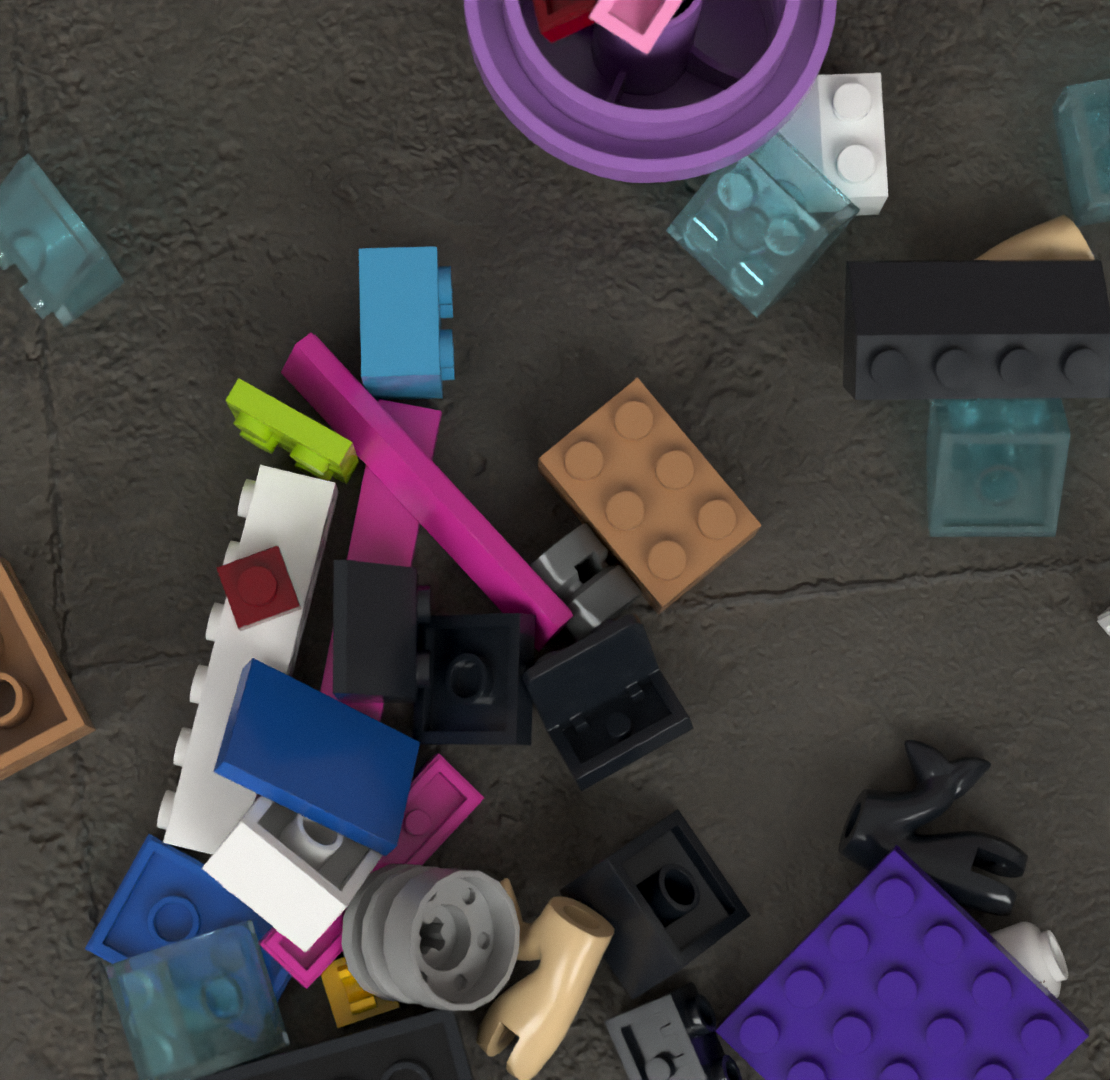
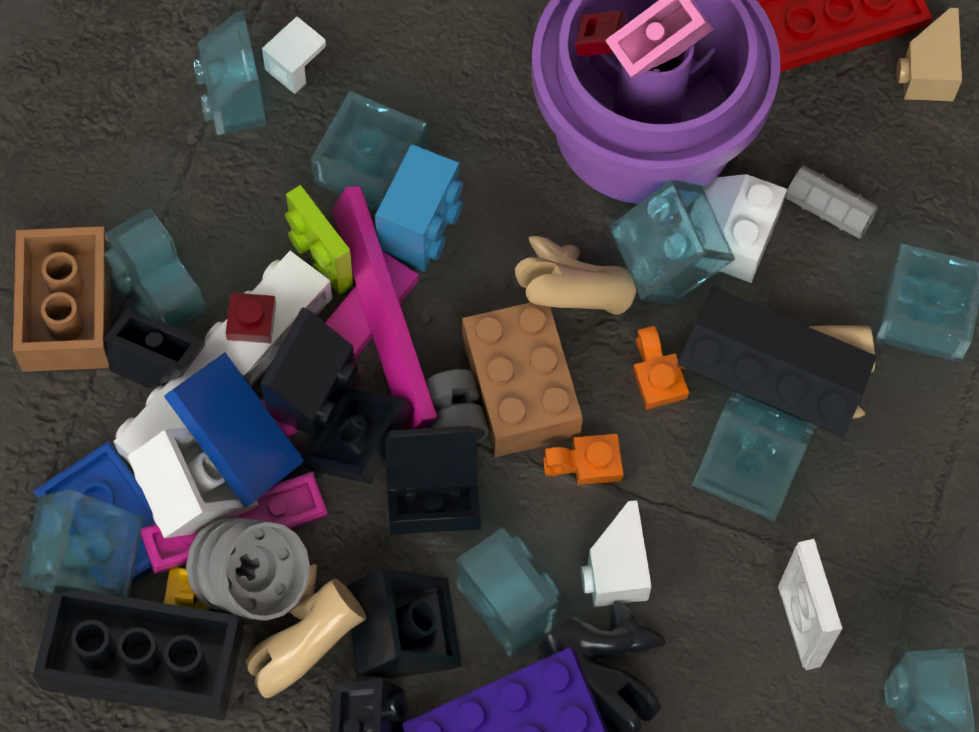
camera: 30 degrees right, 15 degrees down
(85, 573) = (149, 268): none -> clear light blue brick
(114, 165) = (290, 53): none -> white panel
(148, 692) = (149, 349): none -> black slope
(293, 269) = (365, 147): none -> clear light blue brick
(657, 335) = (564, 282): none -> tan piece
(776, 804) = (508, 591): none -> clear light blue brick
(786, 562) = (592, 459): none -> orange plate
(820, 406) = (658, 375): none -> orange plate
(888, 688) = (618, 562): none -> white slope
(938, 54) = (831, 201): none -> light grey axle

